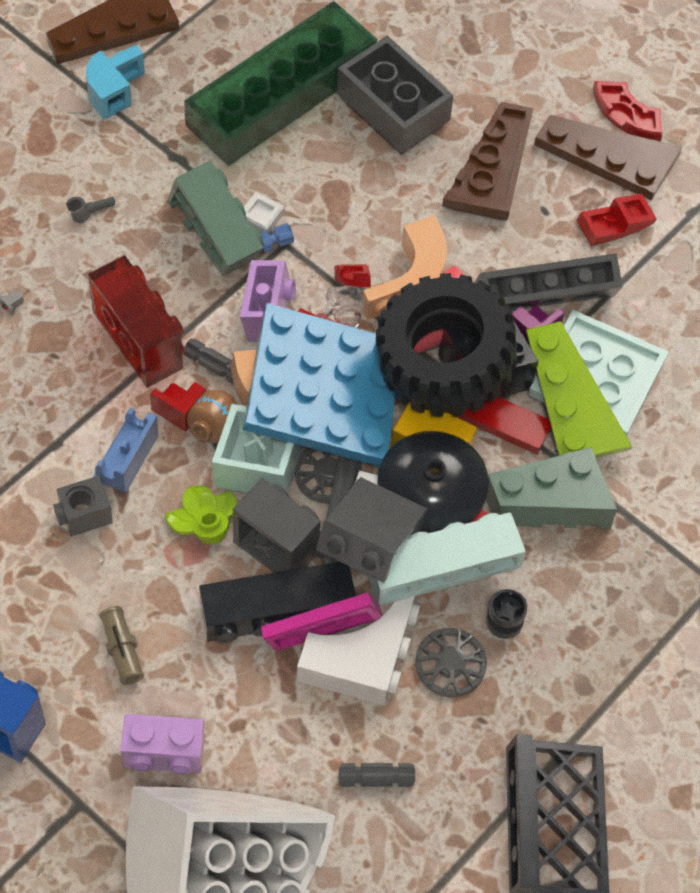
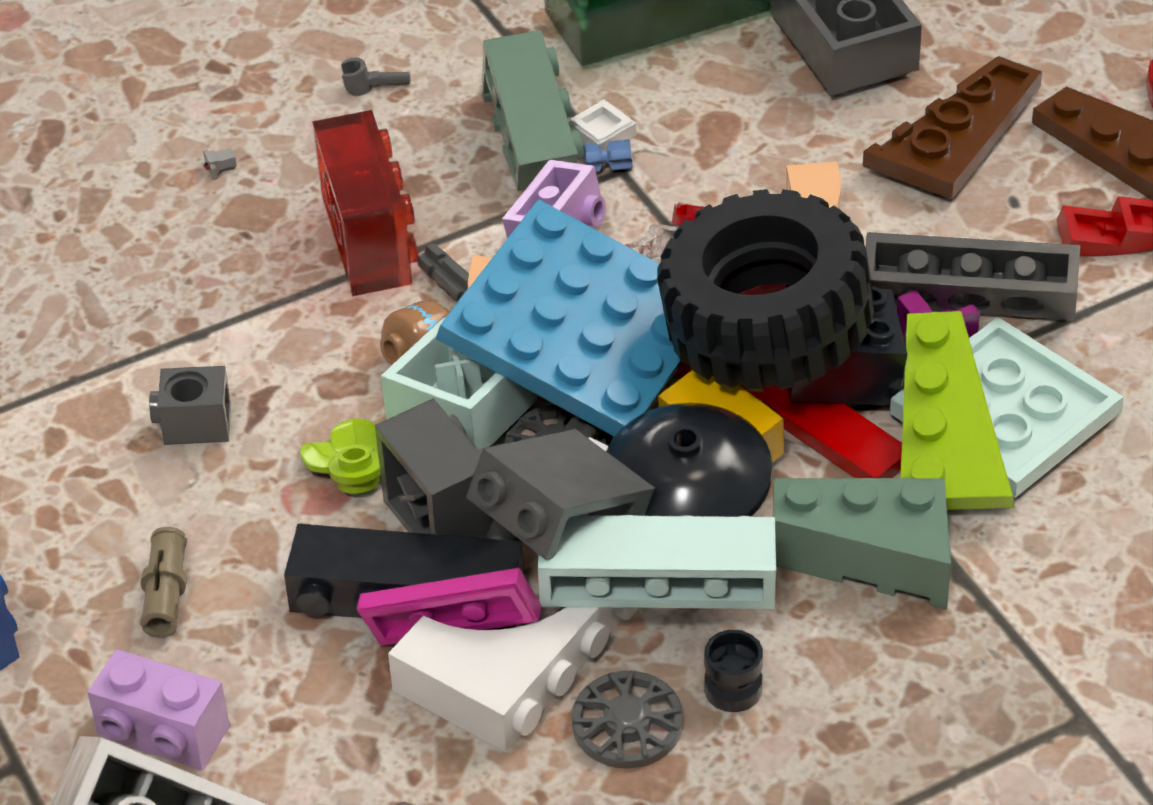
camera: 25 degrees right, 15 degrees down
(127, 451) = (287, 359): medium blue hinge -> none
(175, 403) = (367, 317): red panel -> none

